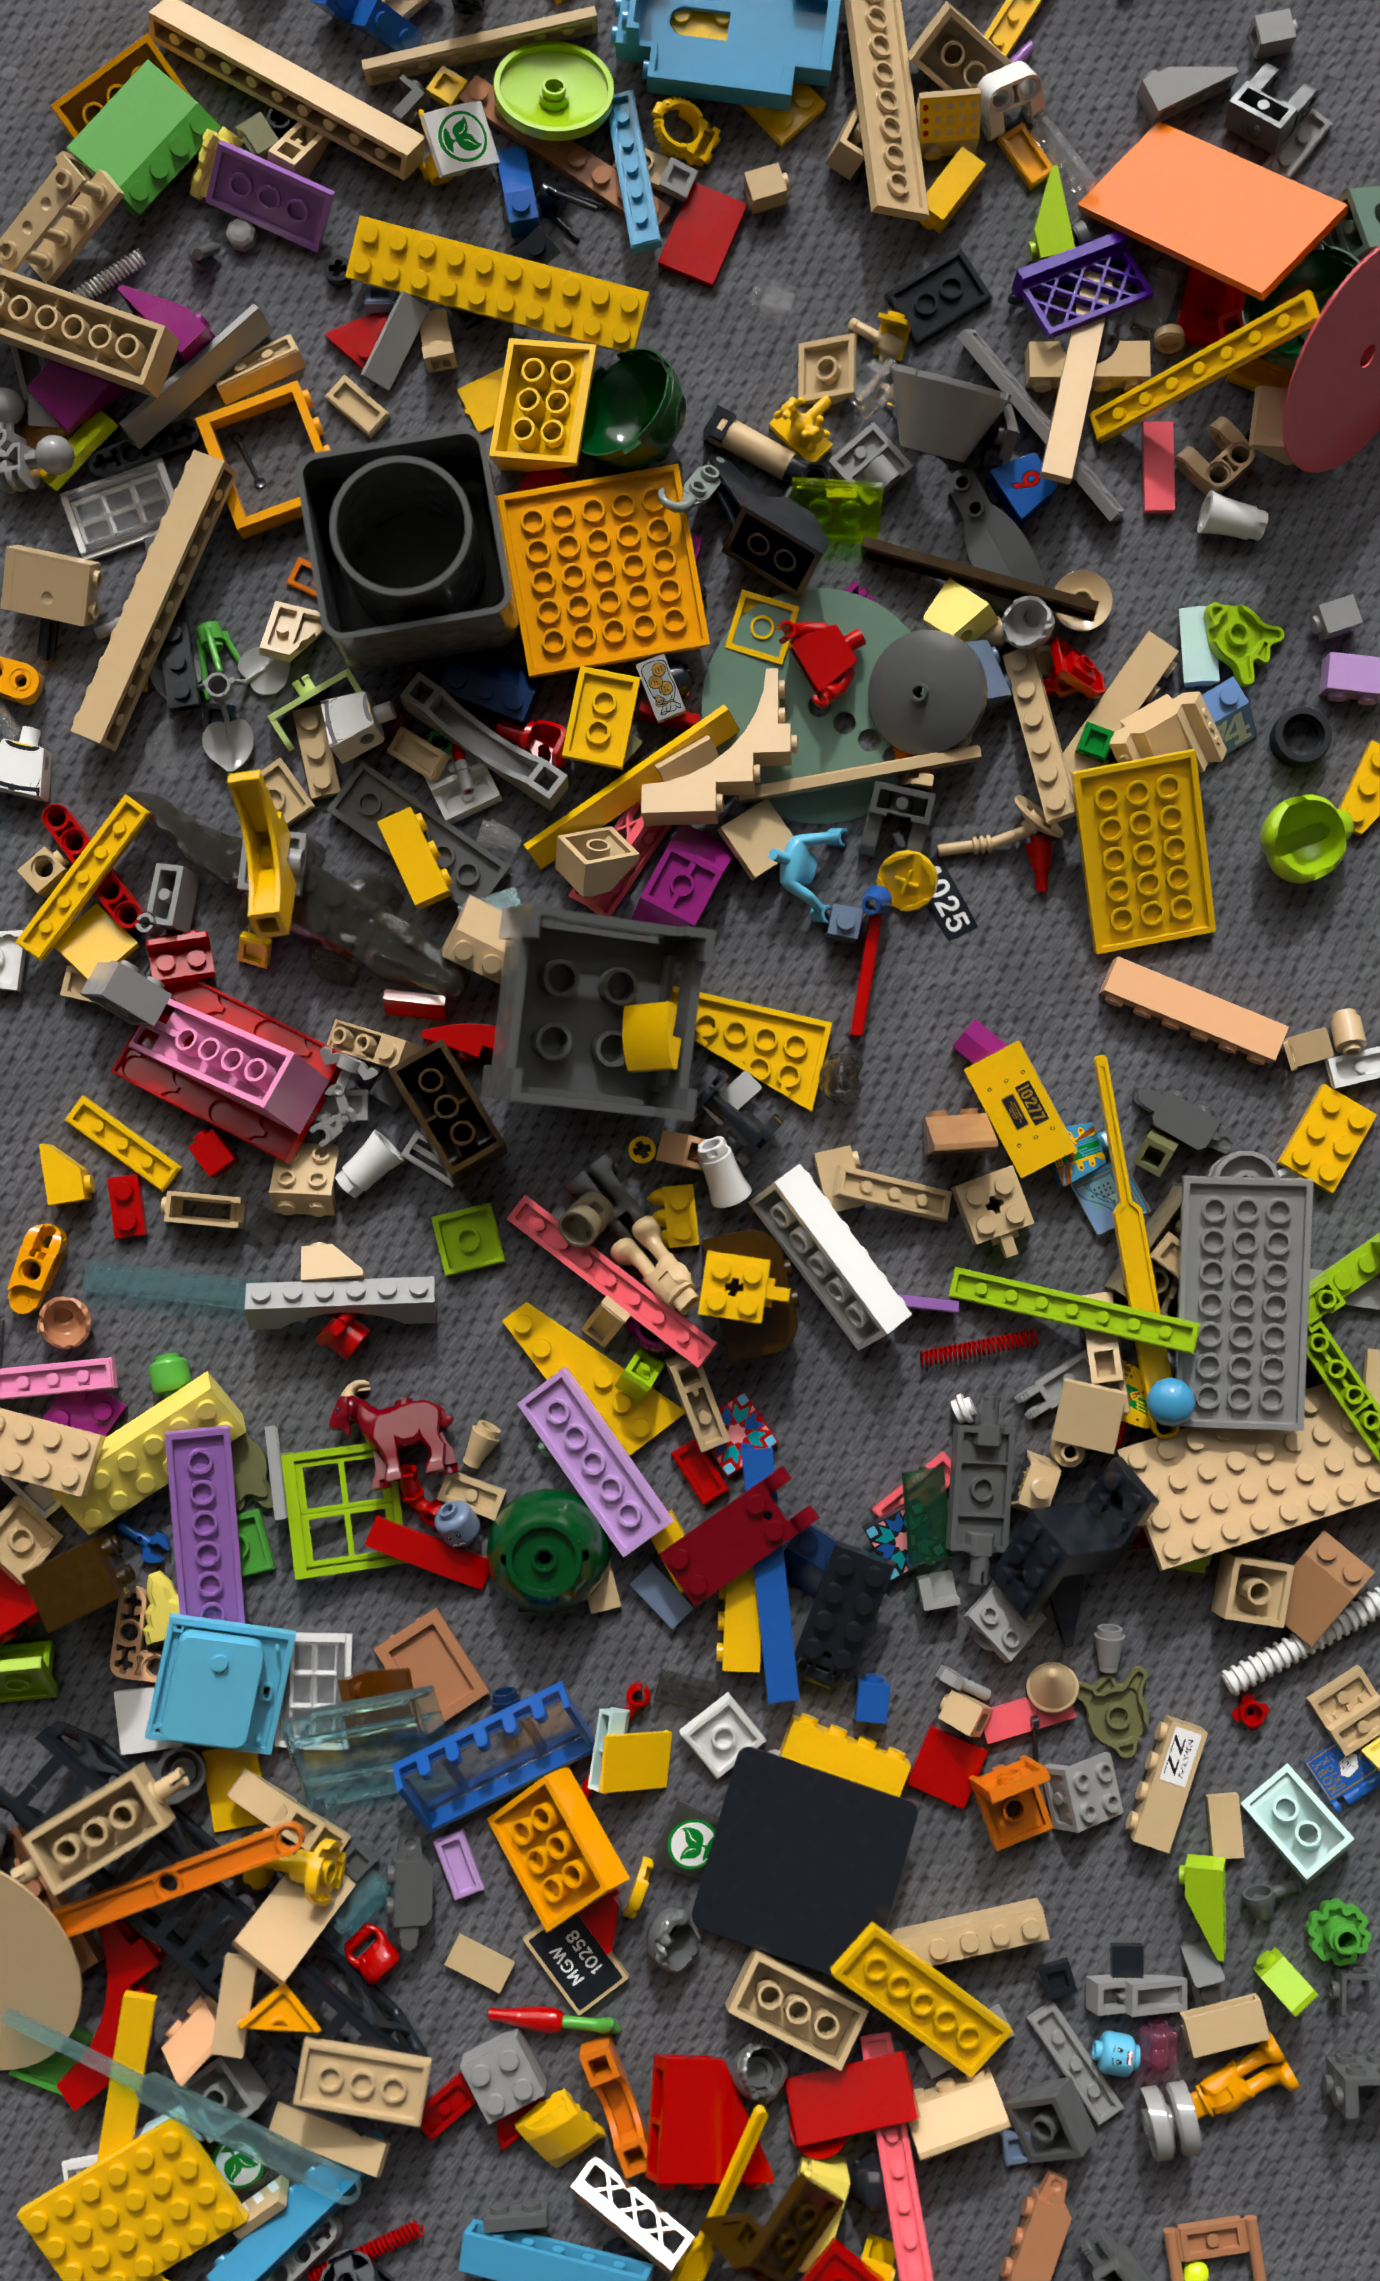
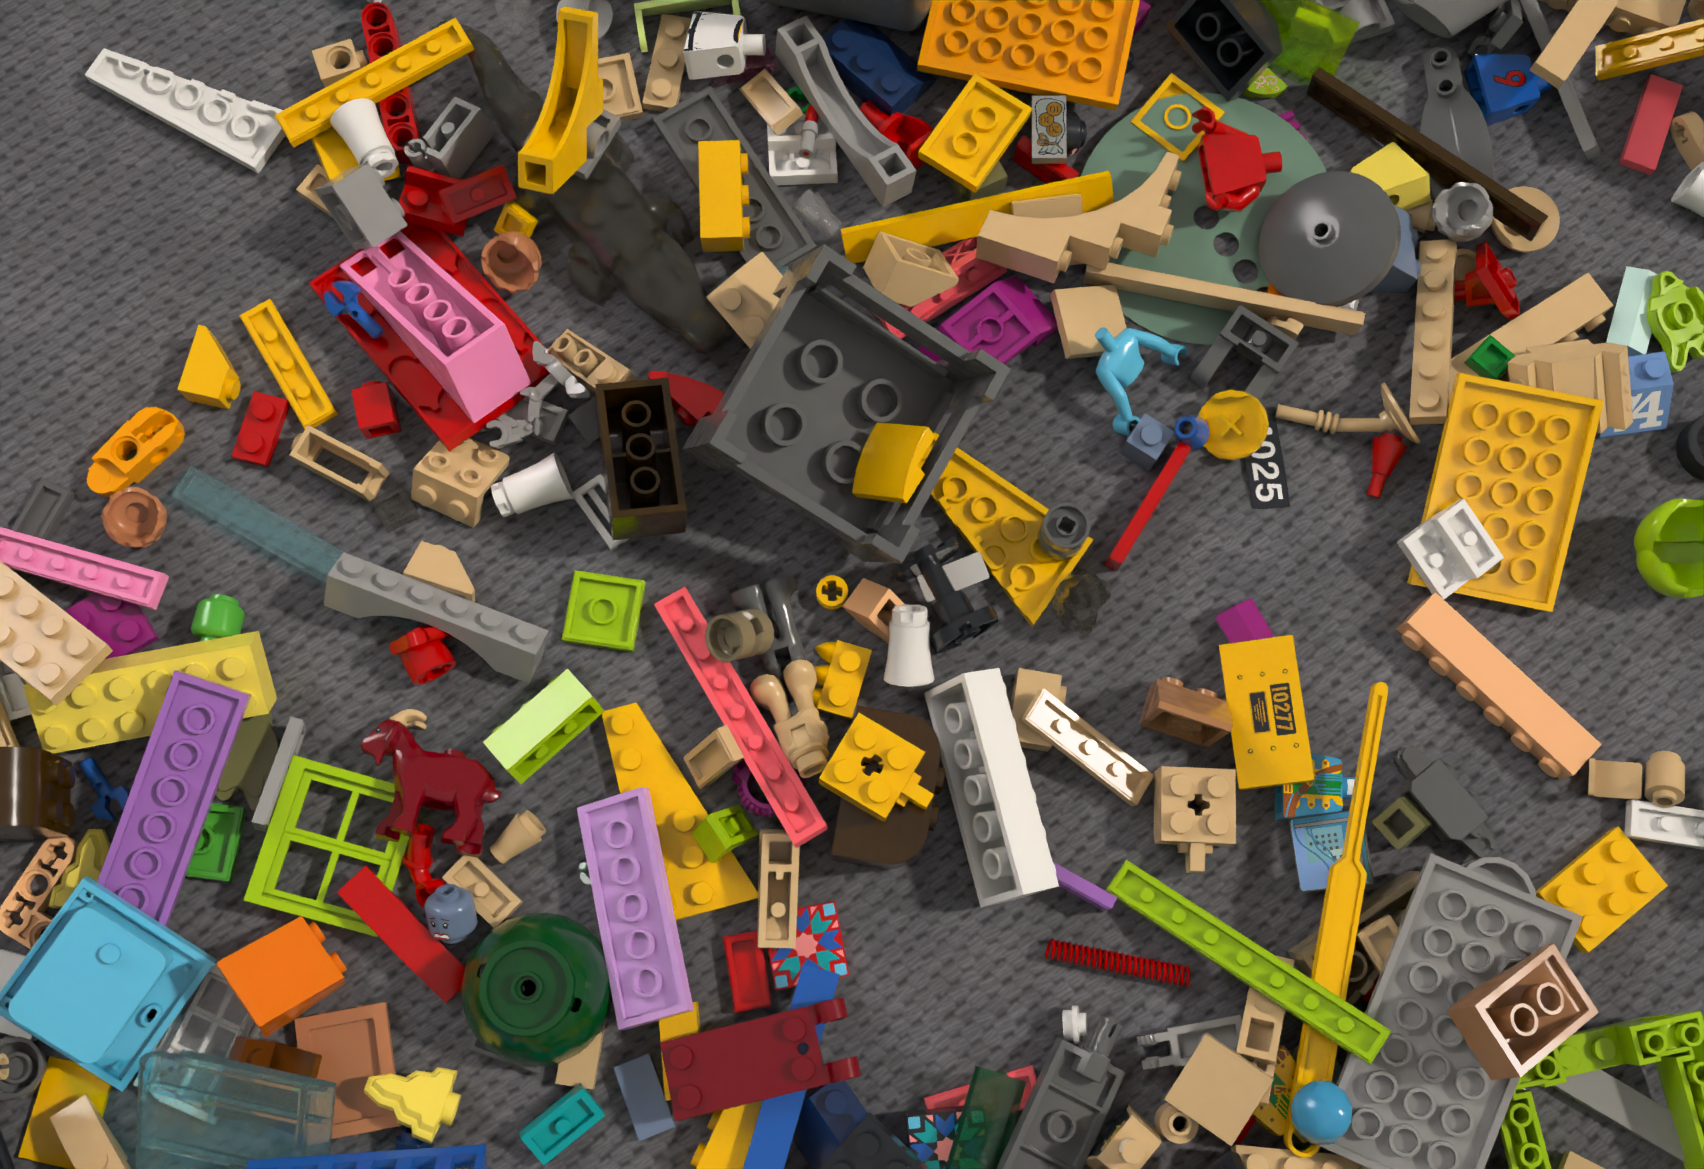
camera: 20 degrees right, 10 degrees down
(100, 930) = (364, 135): none -> white plant
(156, 1080) = (351, 307): none -> blue bar
(214, 941) = (476, 194): none -> red plate
(267, 984) = (511, 261): none -> nougat hair
(352, 1620) = (283, 974): none -> orange slope
(415, 1004) = (656, 345): red tile -> none
(462, 1351) = (543, 726): none -> brick
(495, 1669) = (418, 1101): none -> light yellow rock
(609, 1640) = (562, 1124): none -> teal plate
(806, 1029) = (1063, 531): none -> dark grey wheel
(828, 565) = (1266, 86): none -> lime tile
(1117, 916) = (1450, 549): none -> white slope
(1293, 1272) = (1522, 1013): none -> medium nougat slope

